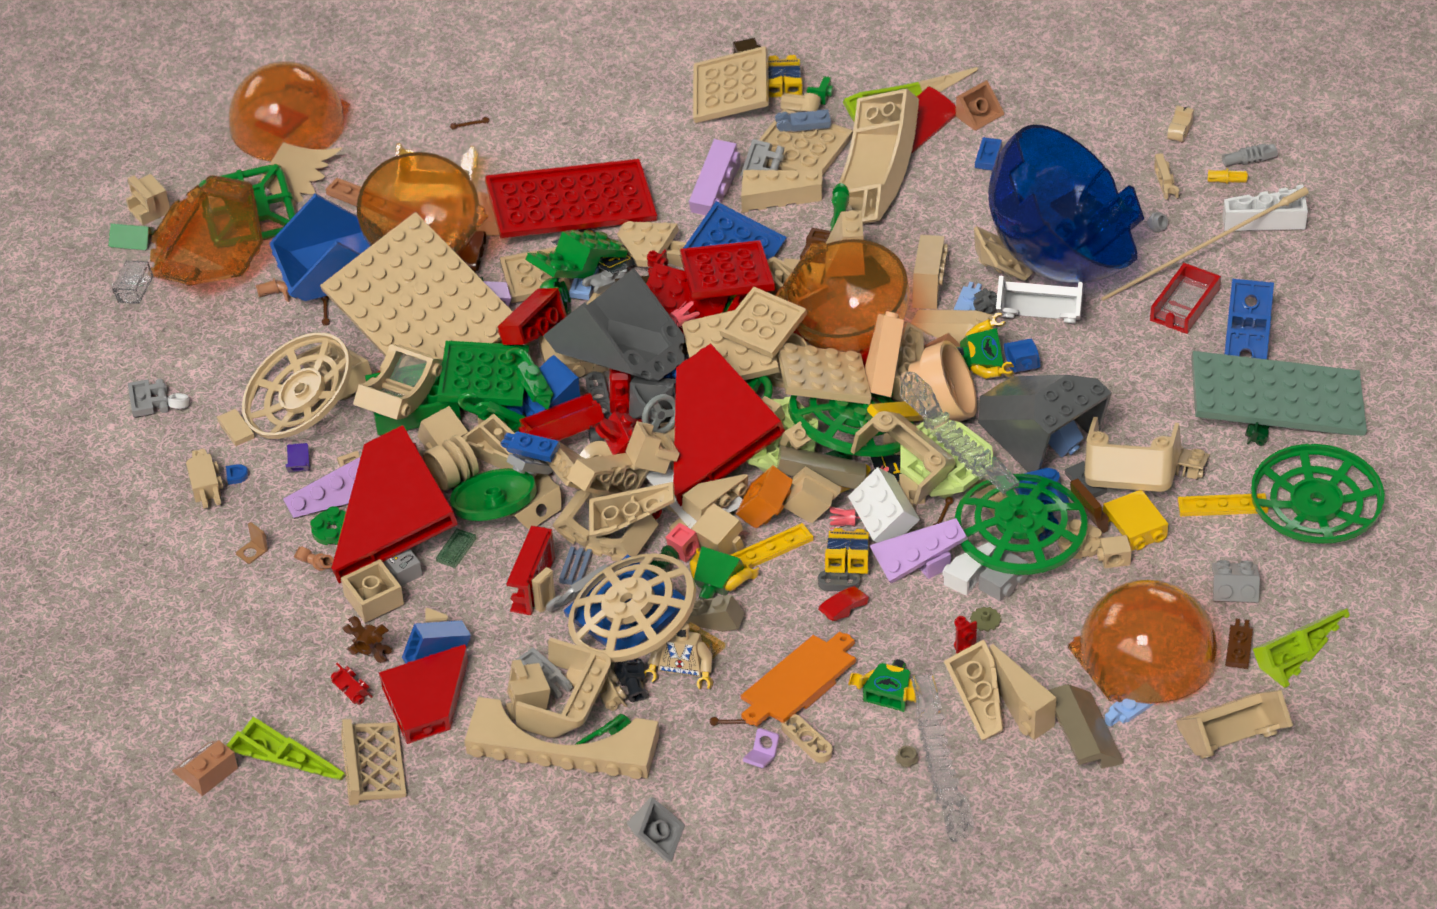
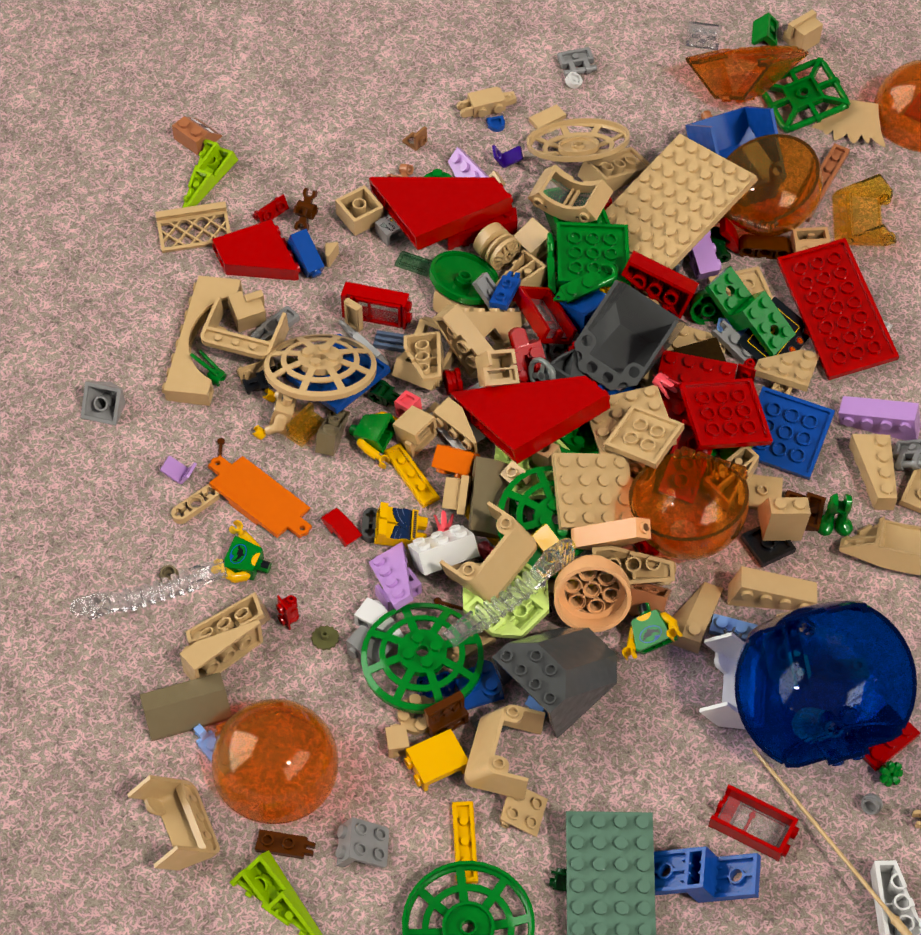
camera: 85 degrees right, 10 degrees up
(1022, 355) = (657, 670): blue piece -> none

